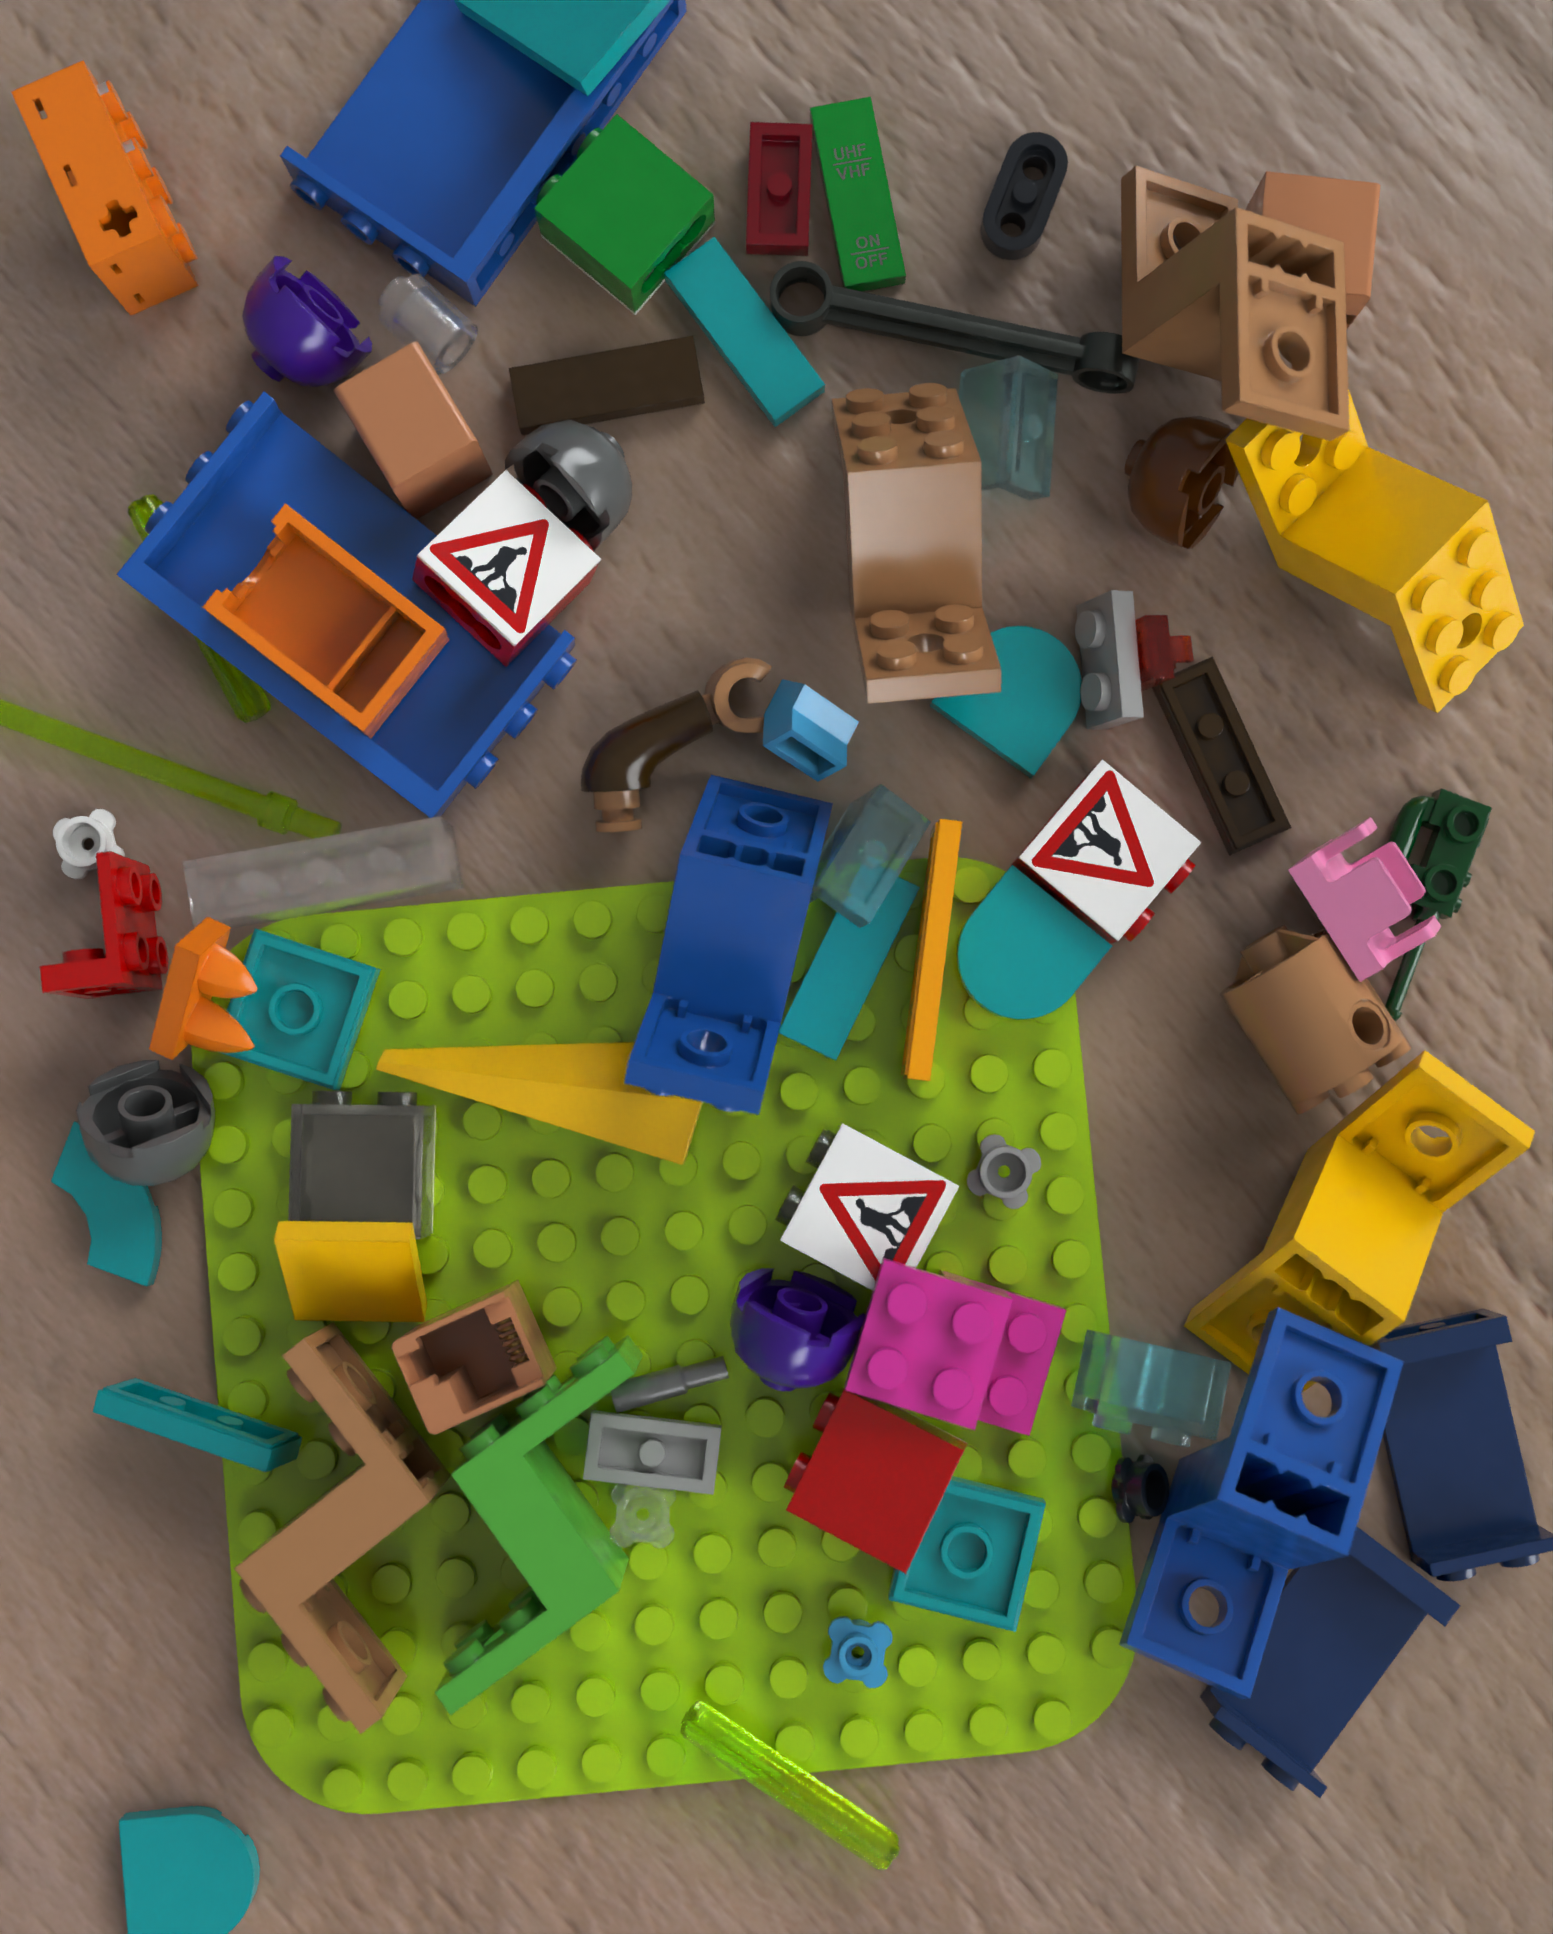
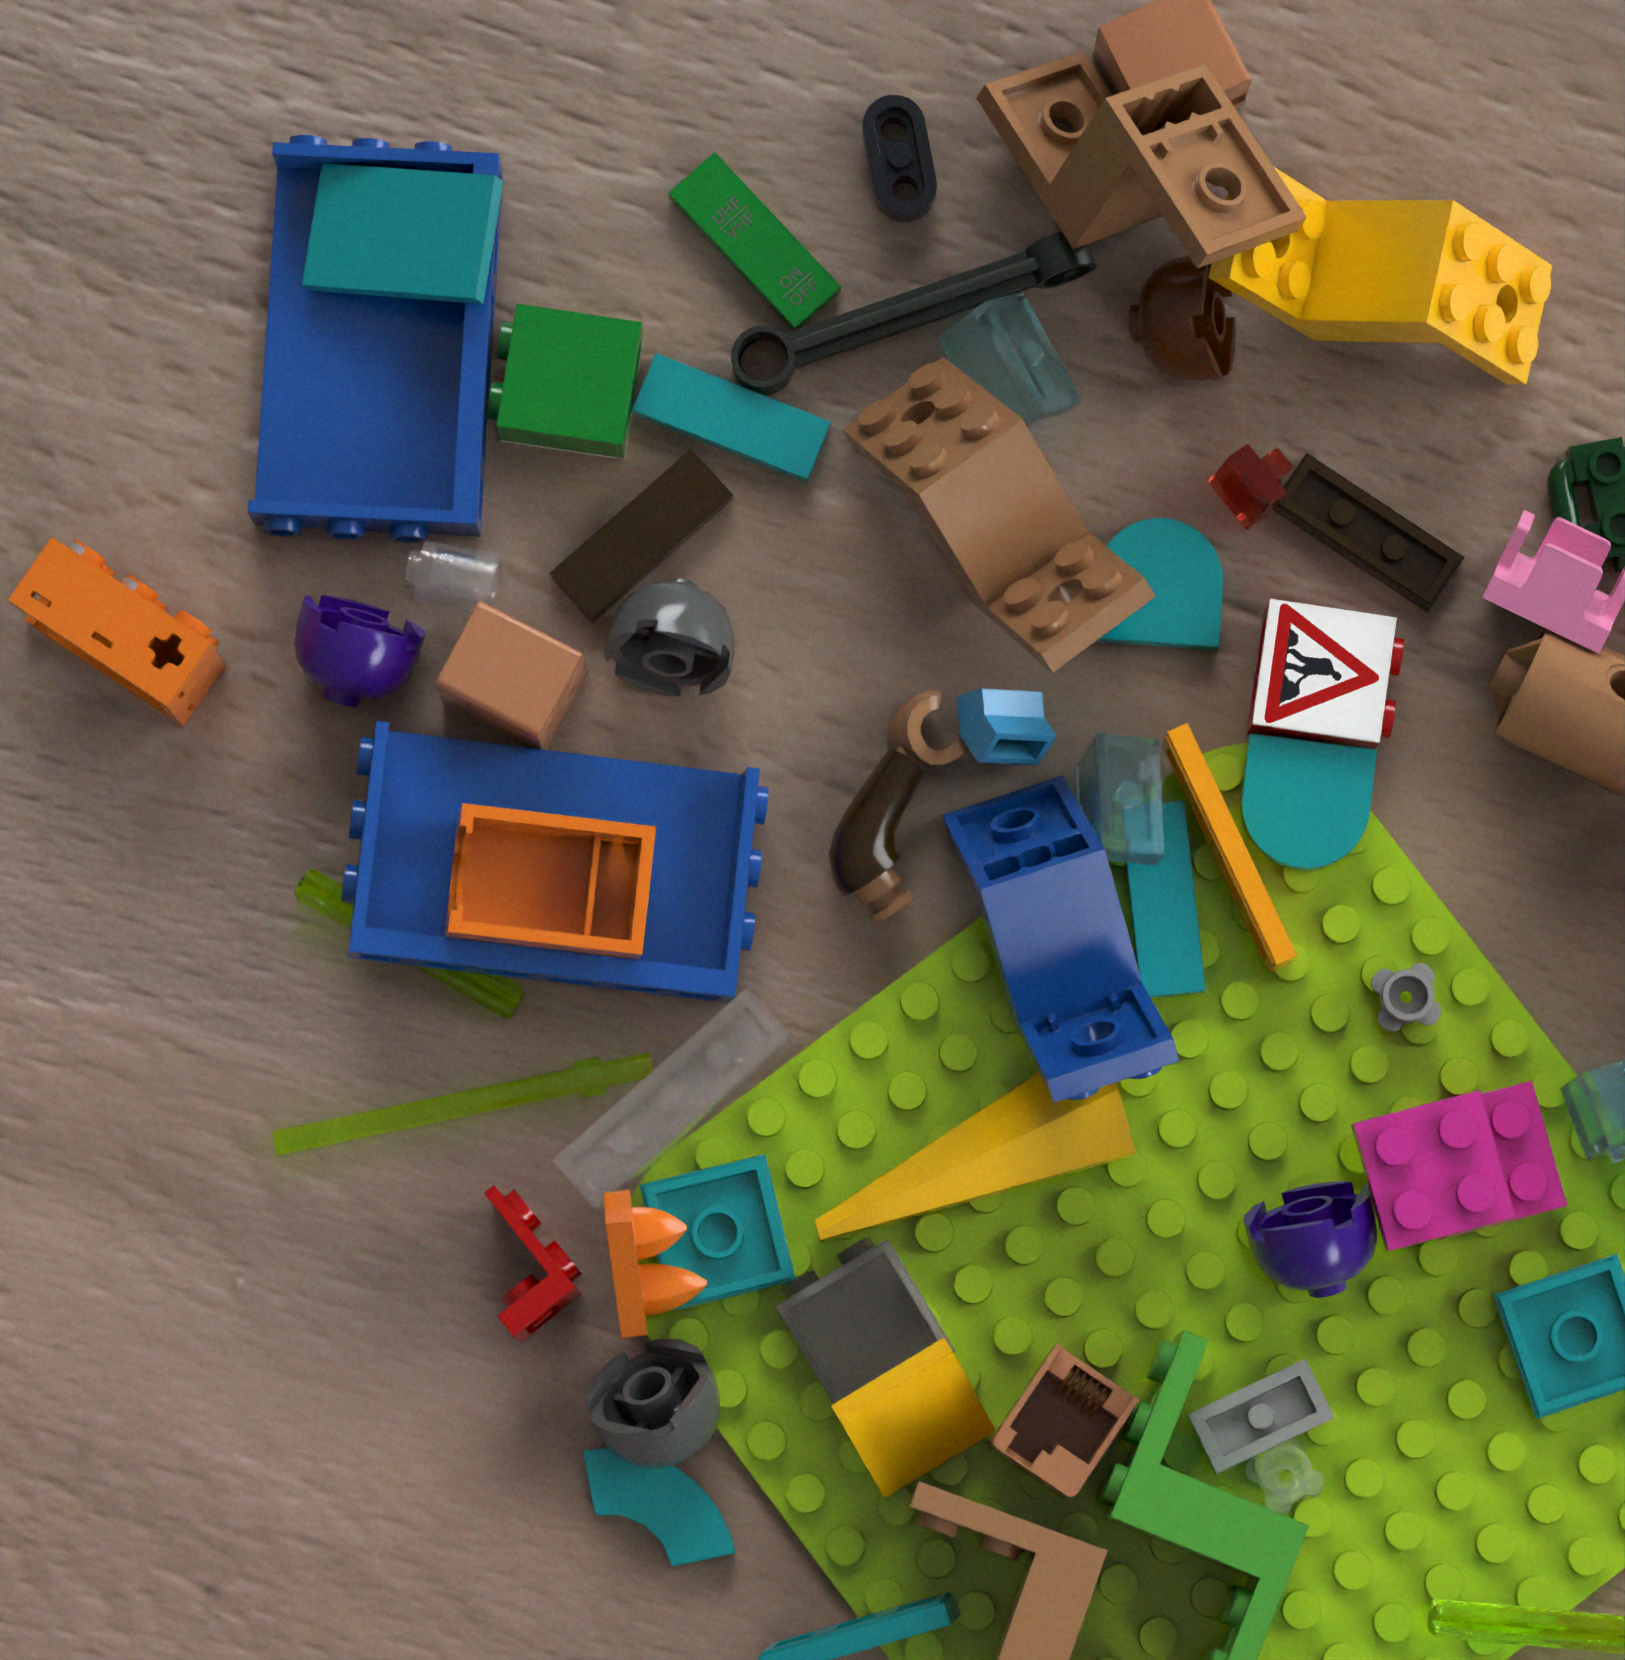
camera: 30 degrees left, 5 degrees down
(71, 836) = (441, 1187): white plate -> none
(505, 567) = (663, 746): piece -> none
(667, 1383) = (1235, 1354): flat silver pin -> none
(779, 189) = (686, 278): dark red plate -> none
(852, 1633) = (1520, 1473): dark azure plate -> none
(863, 1206) = (1305, 1096): white piece -> none
(873, 1476) = (1457, 1315): red piece -> none
(1109, 660) = (1222, 510): light grey plate -> none

